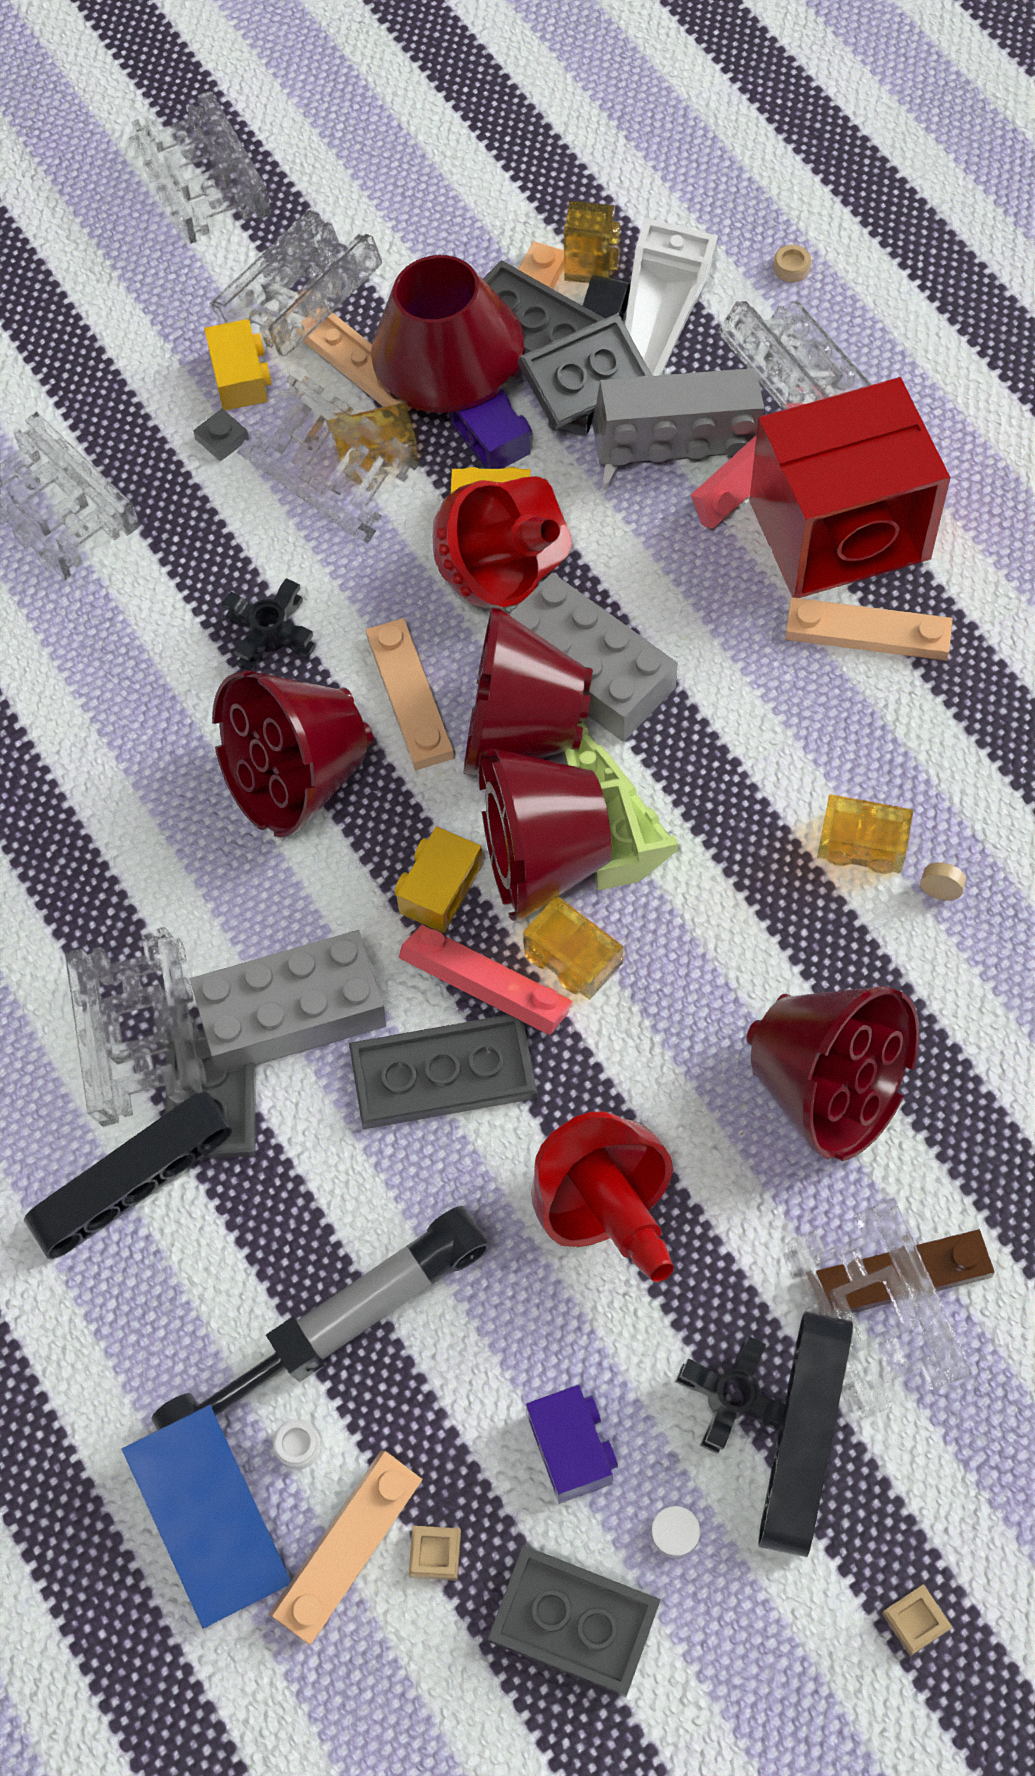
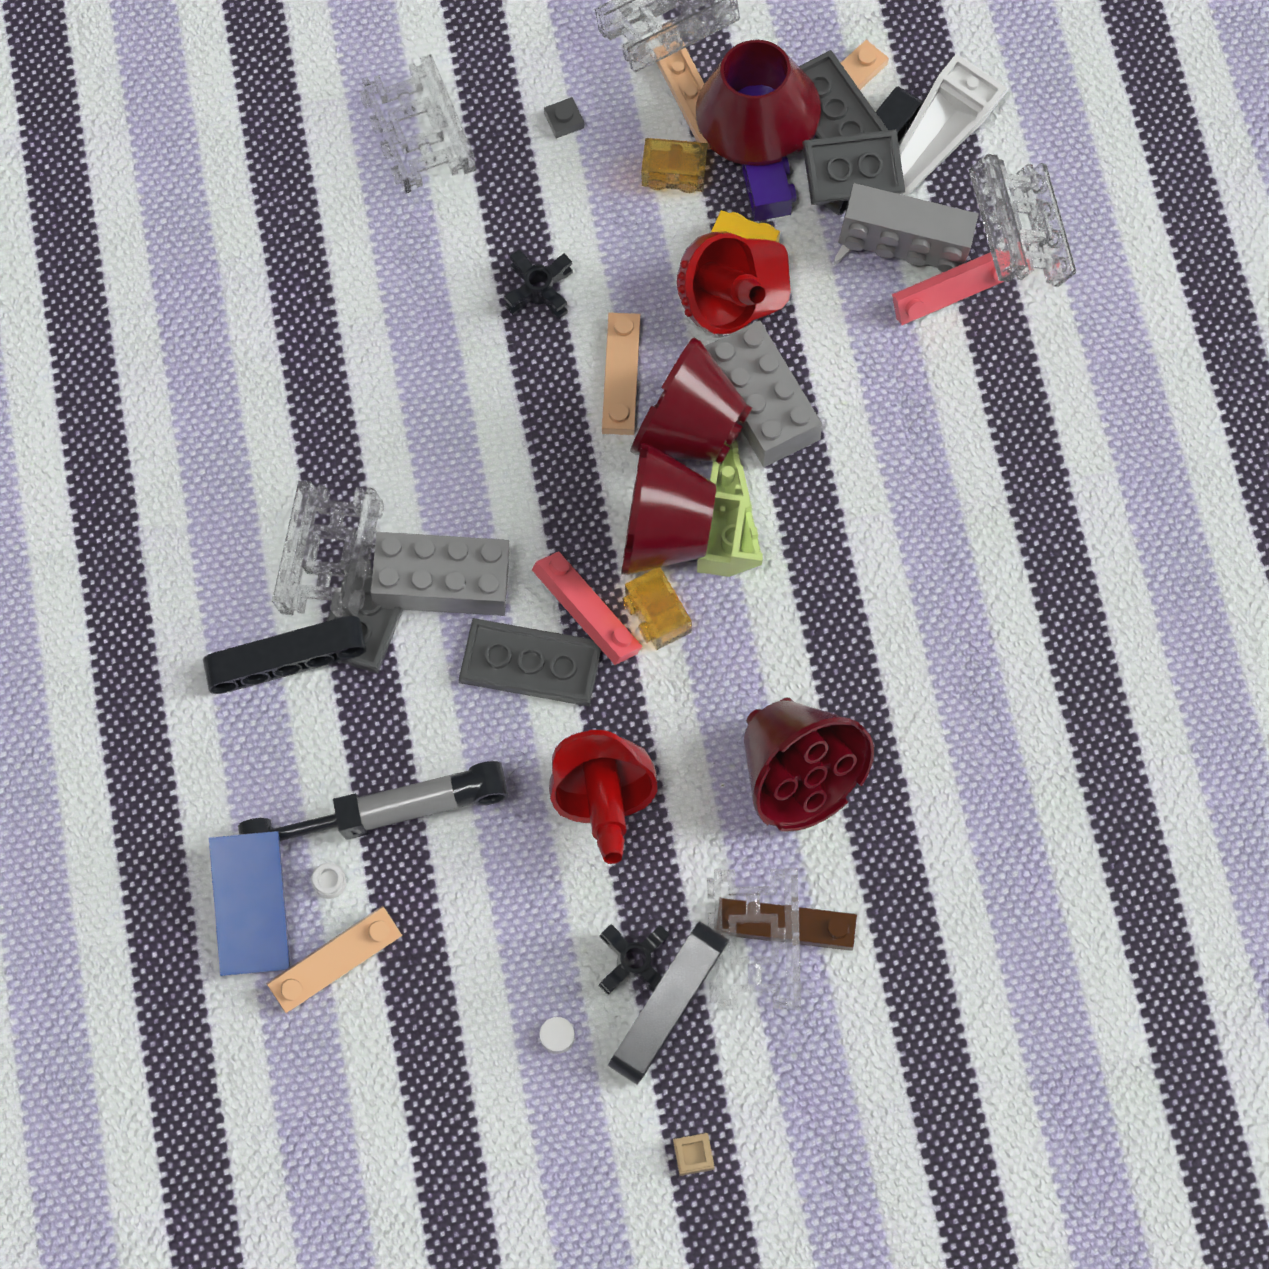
camera: 20 degrees right, 5 degrees up
(236, 364) = (596, 65): yellow brick -> none
(286, 746) = (512, 385): dark red cone -> none
(311, 482) = (613, 183): clear fence -> none
(435, 1553) = (391, 986): tan tile -> none
(438, 879) = (583, 522): yellow brick -> none
(570, 1443) = (510, 950): dark purple brick -> none
(574, 1621) = (464, 1065): dark grey plate -> none
(590, 241) = (905, 59): clear yellow brick -> none
(792, 263) = (1061, 128): tan tile -> none
(847, 487) = (1006, 334): red piece -> none
(865, 834) = (905, 602): clear yellow brick -> none
(869, 629) = (983, 446): light nougat plate -> none
(943, 881) = (947, 658): tan tile -> none

